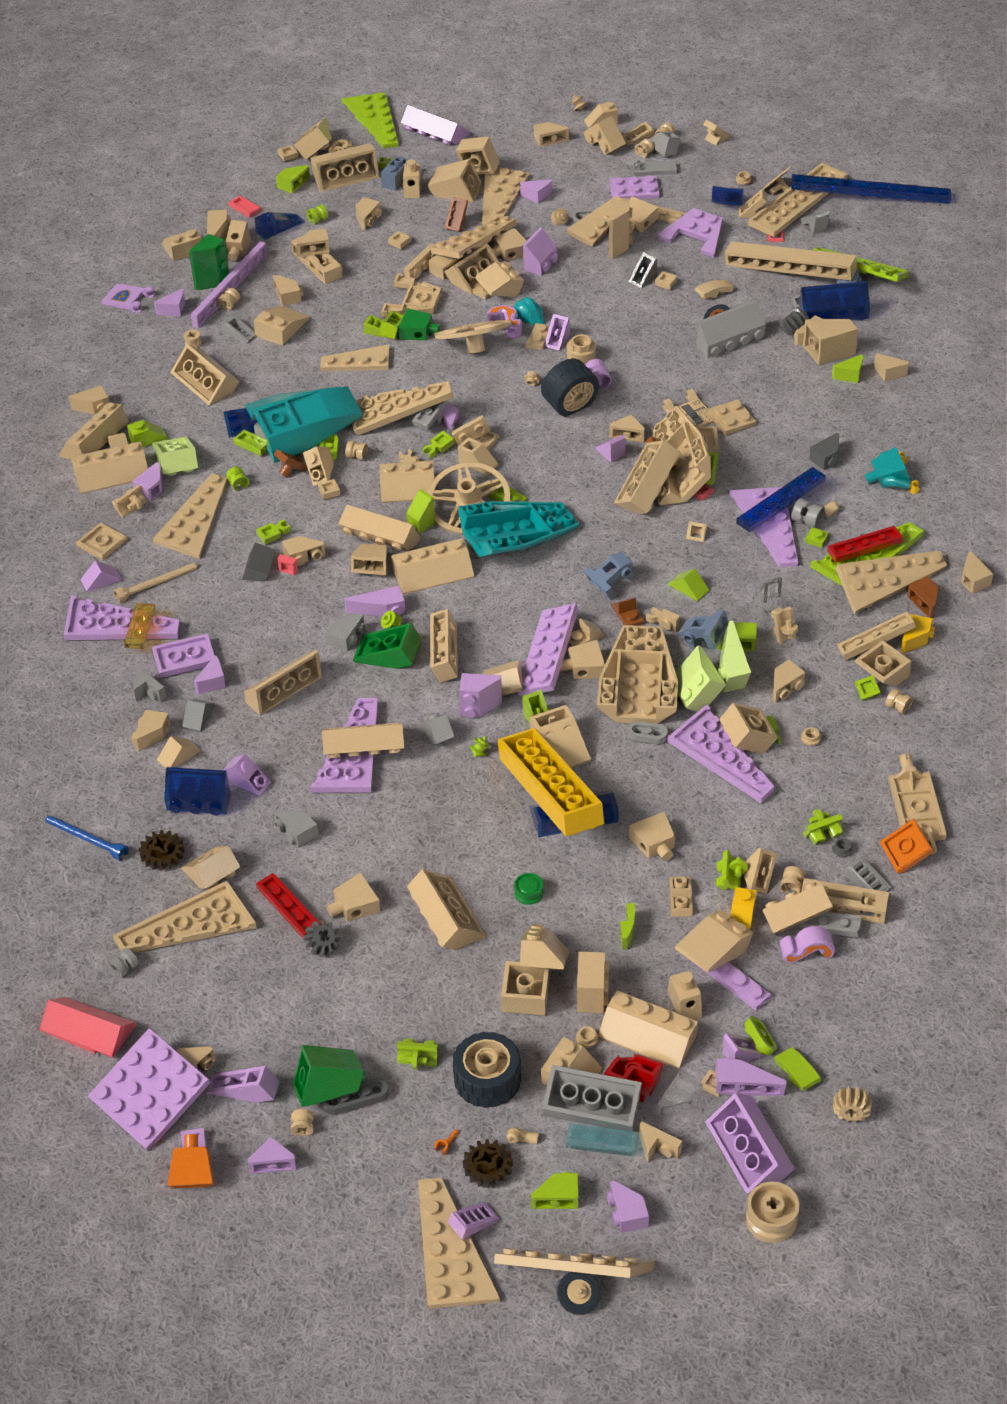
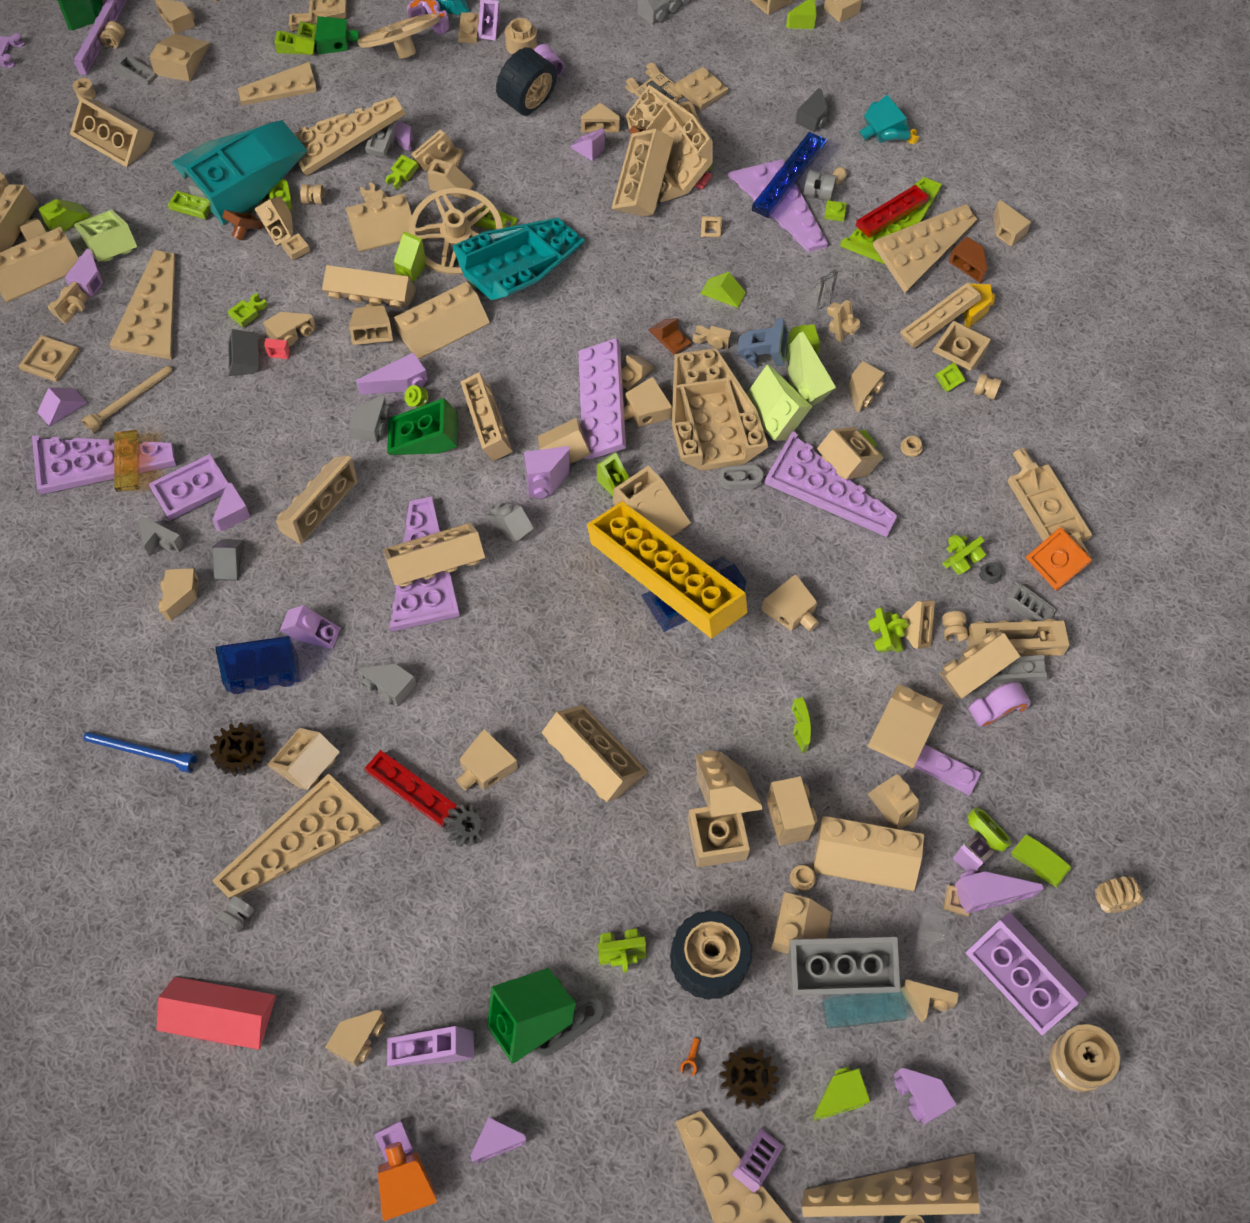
camera: 20 degrees left, 15 degrees up
(149, 1089) = (319, 1087): lavender plate -> none
(171, 304) = (47, 51): lavender slope -> none
(177, 751) = (218, 614): tan slope -> none
(237, 421) = (167, 181): clear blue plate -> none
(237, 477) = (184, 249): lime wheel -> none
(302, 1122) = (516, 1081): tan wheel -> none
(480, 746) = (565, 534): lime wheel -> none
(519, 1135) = (772, 1027): tan arm -> none
(528, 888) = (677, 701): green wheel -> none
(532, 378) = (478, 77): tan plate -> none
(605, 581) = (634, 303): sand blue tile -> none
(637, 1069) = (875, 915): red brick -> none
(681, 896) = (842, 672): tan slope -> none
(744, 906) = (917, 672): yellow slope -> none

